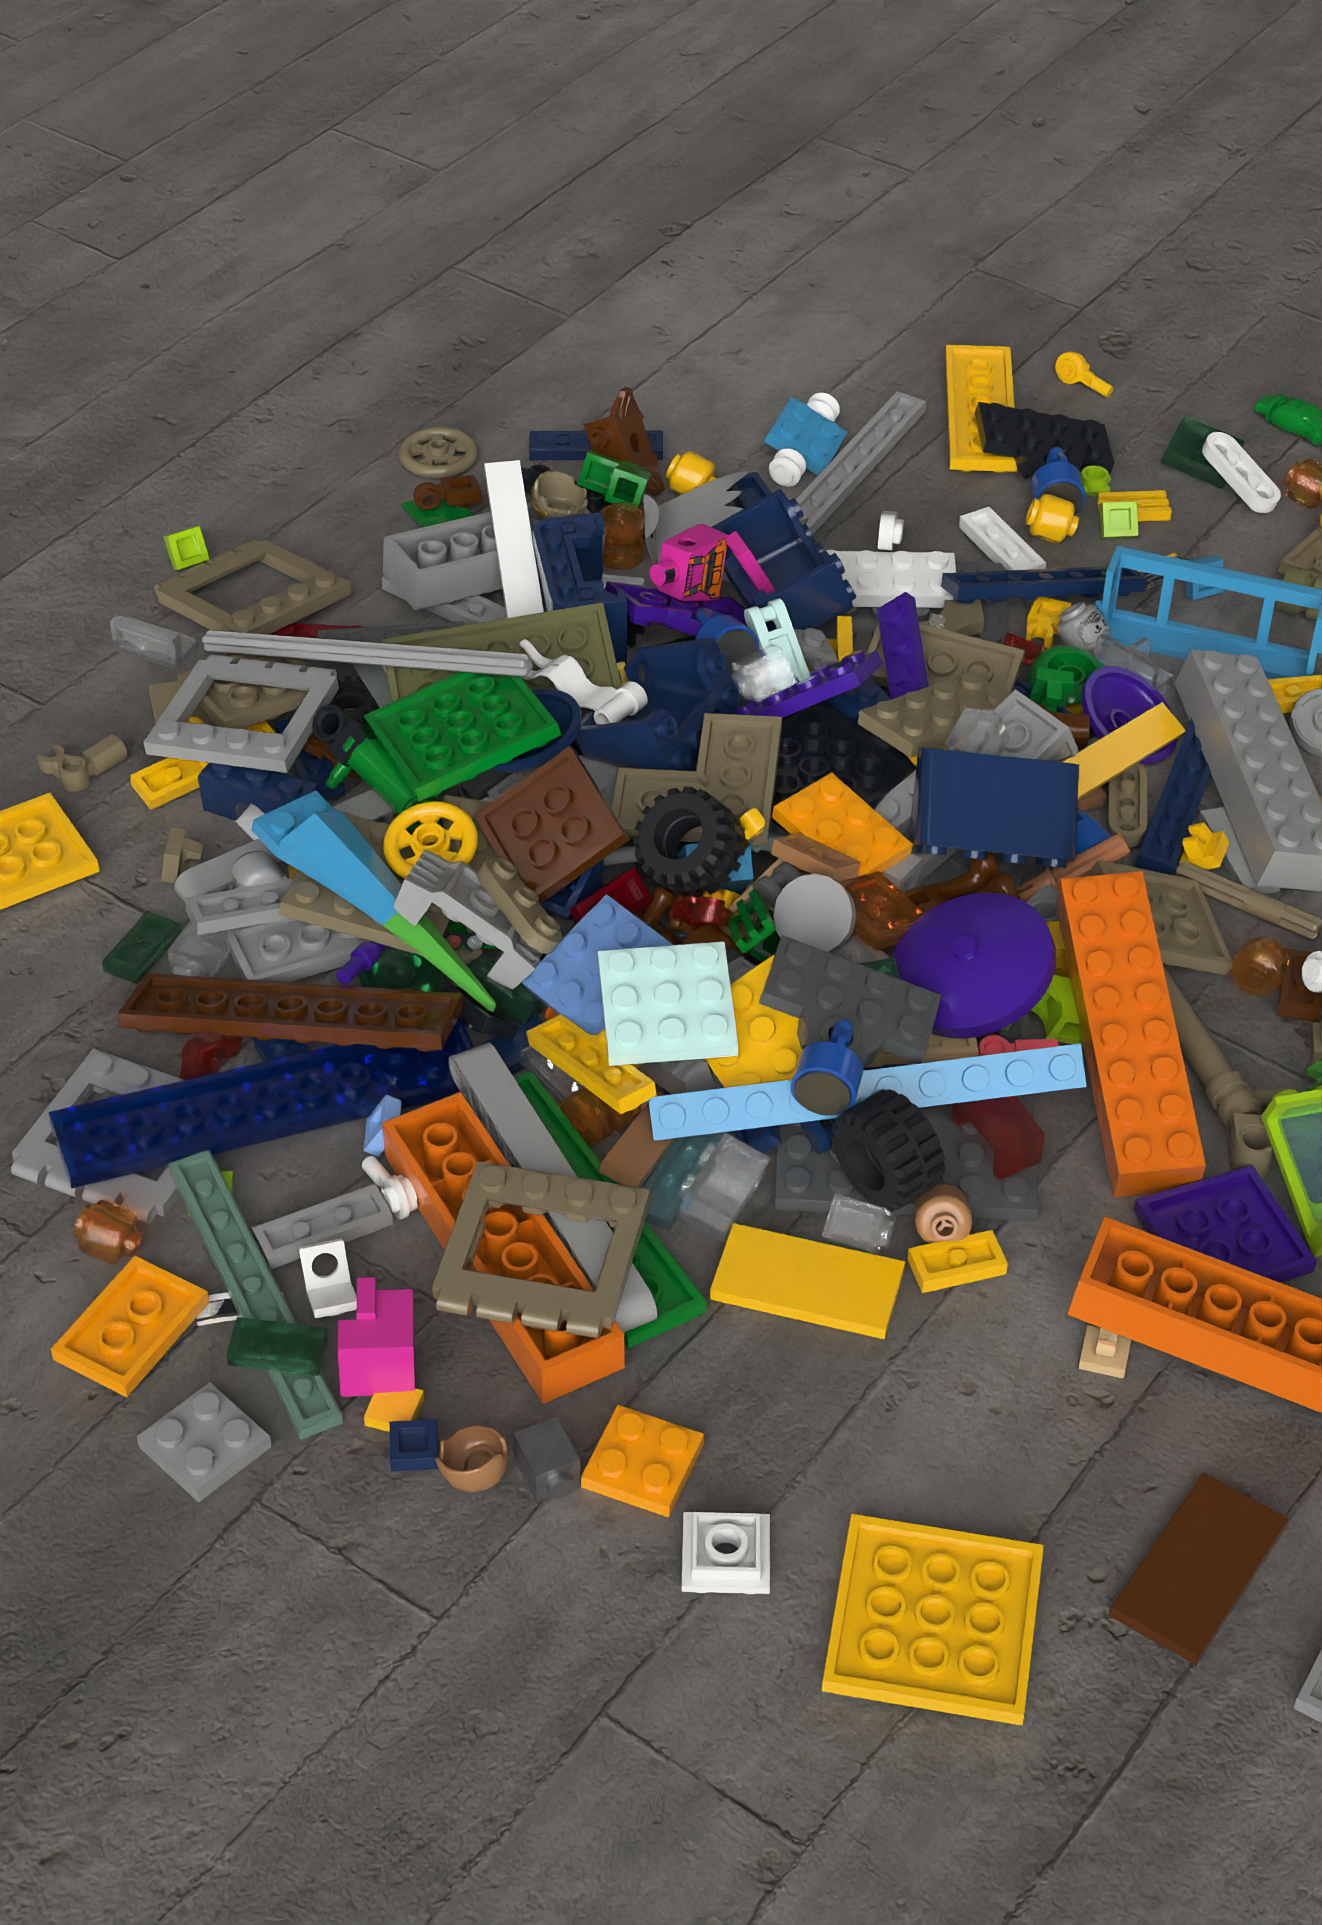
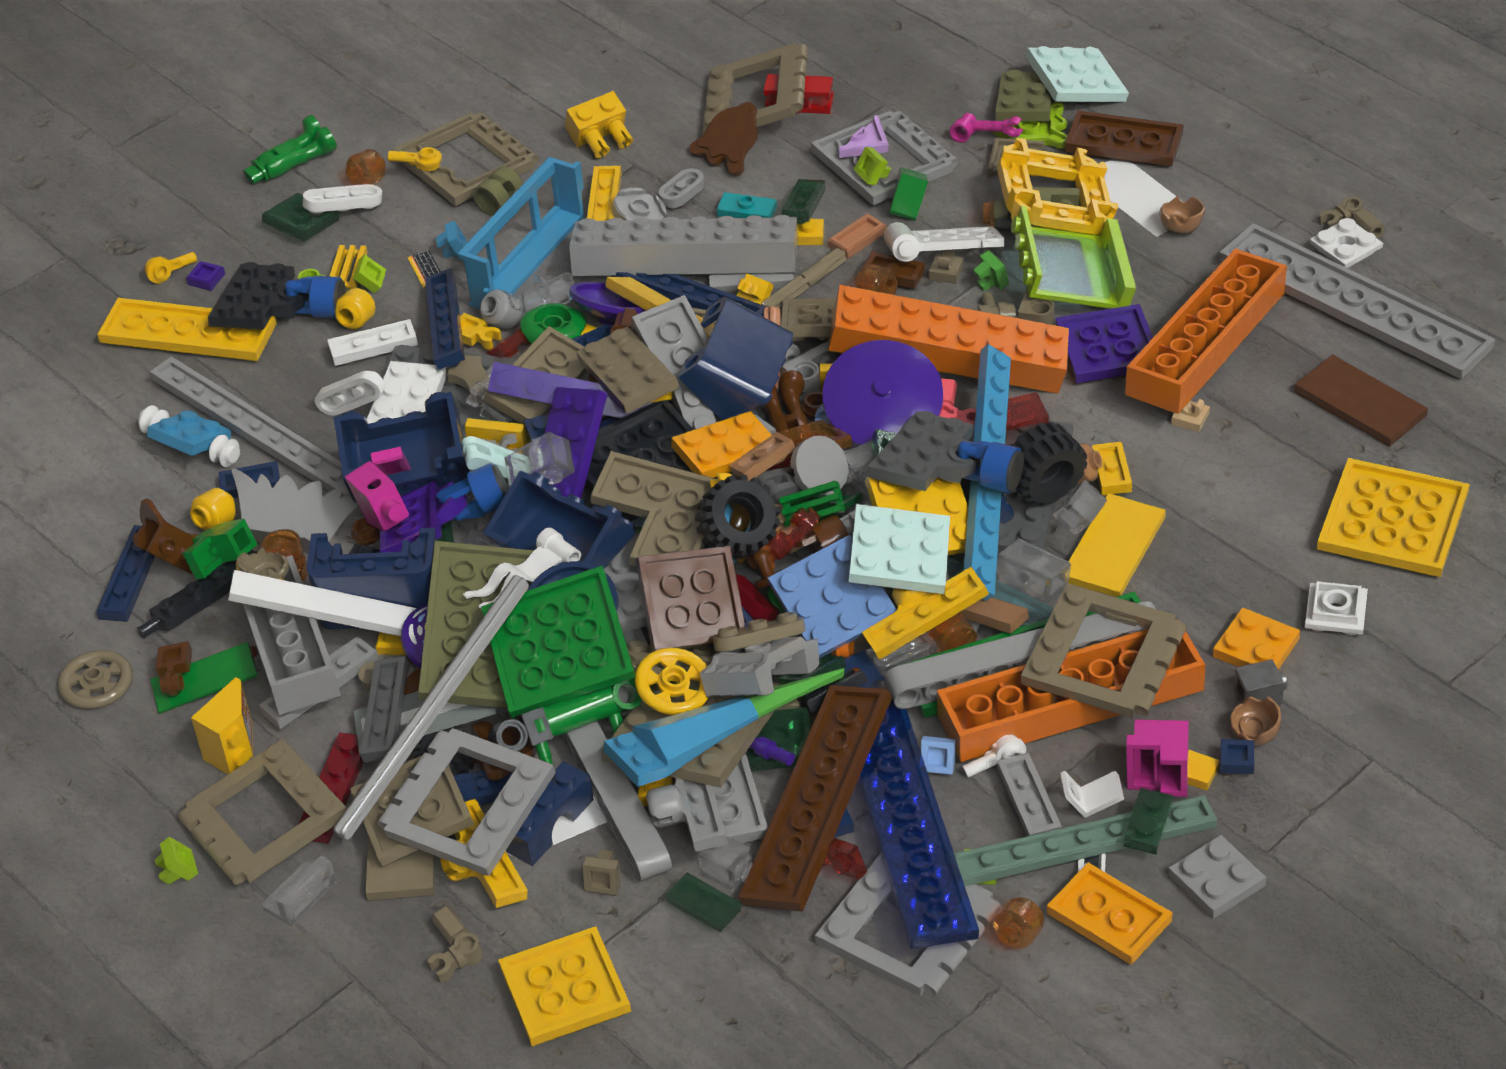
camera: 75 degrees left, 0 degrees up
(352, 536) = (225, 729): none -> yellow slope
(978, 733) = (673, 346): clear brick -> none
(1051, 687) = (584, 326): green tile -> none
(1081, 405) = (205, 275): none -> dark purple tile

